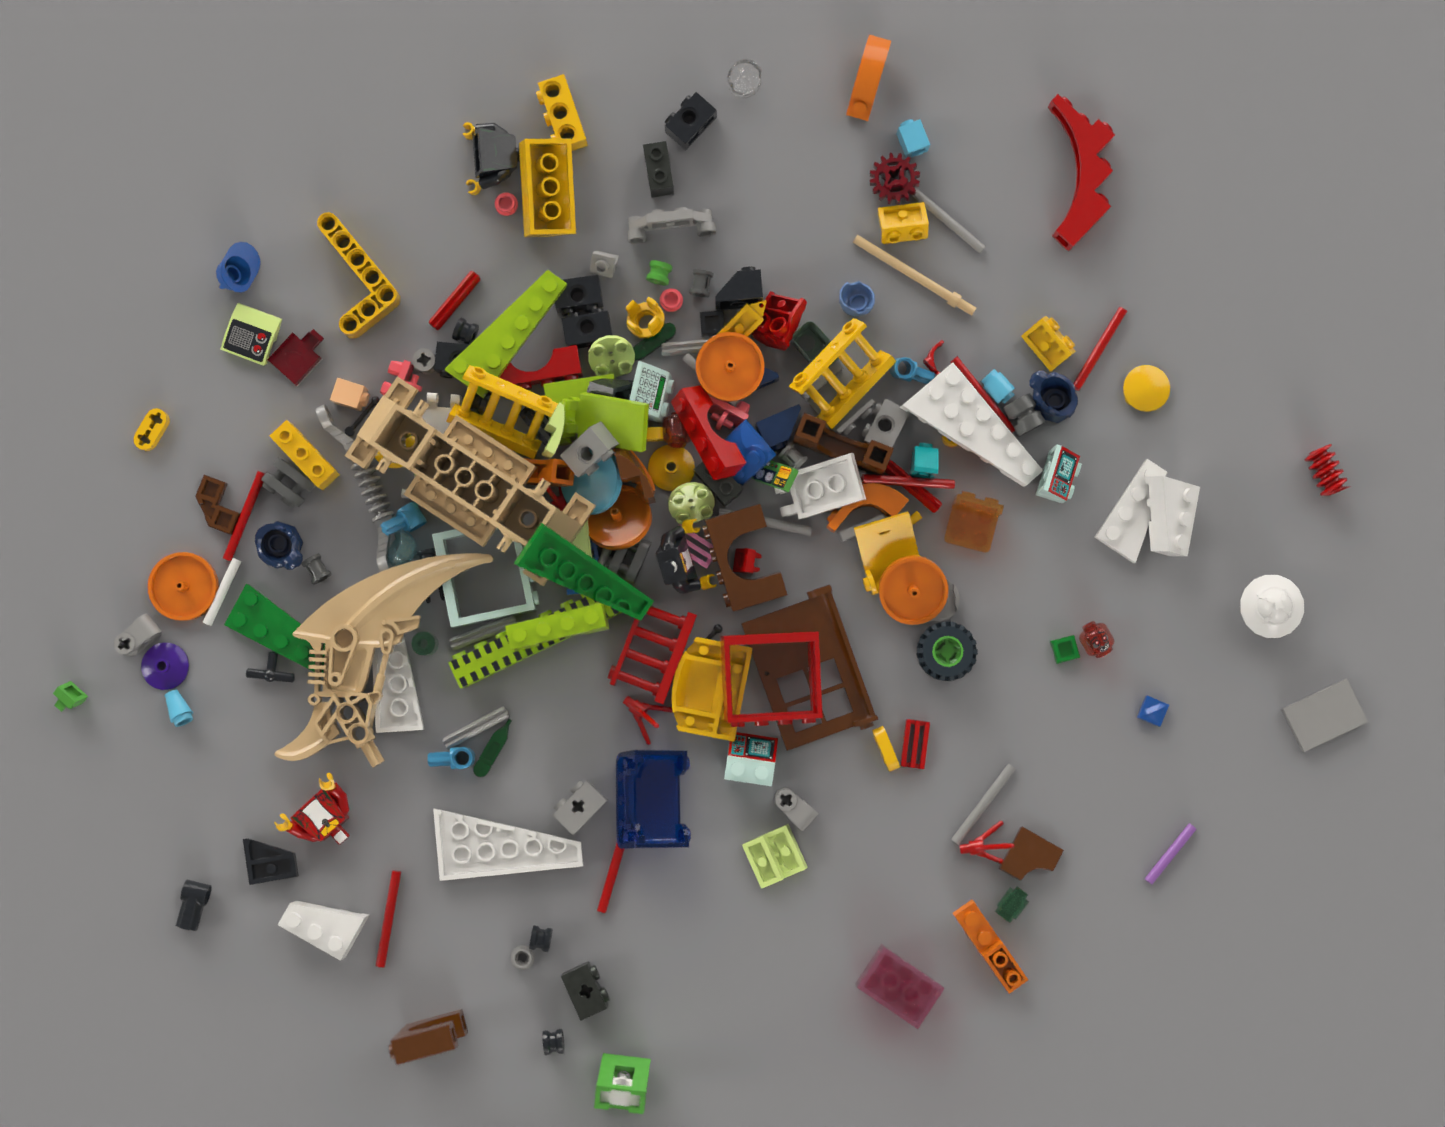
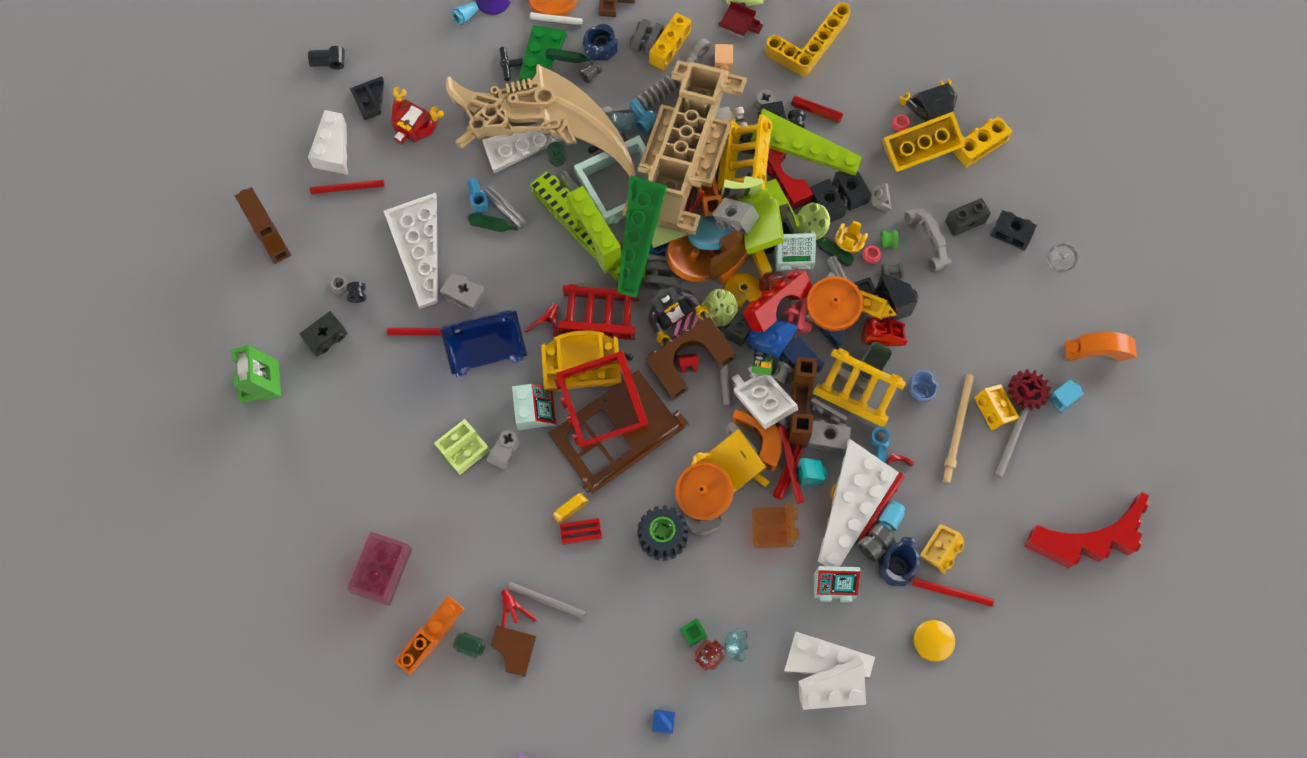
camera: 75 degrees right, 15 degrees down
(244, 516) = (612, 18): red bar -> none
(284, 595) = (566, 56): none -> dark green piece
(403, 371) = (751, 90): coral hips -> none
(553, 1042) = (279, 322): black wheel -> none
(1093, 609) = (735, 644): none -> clear light blue hair

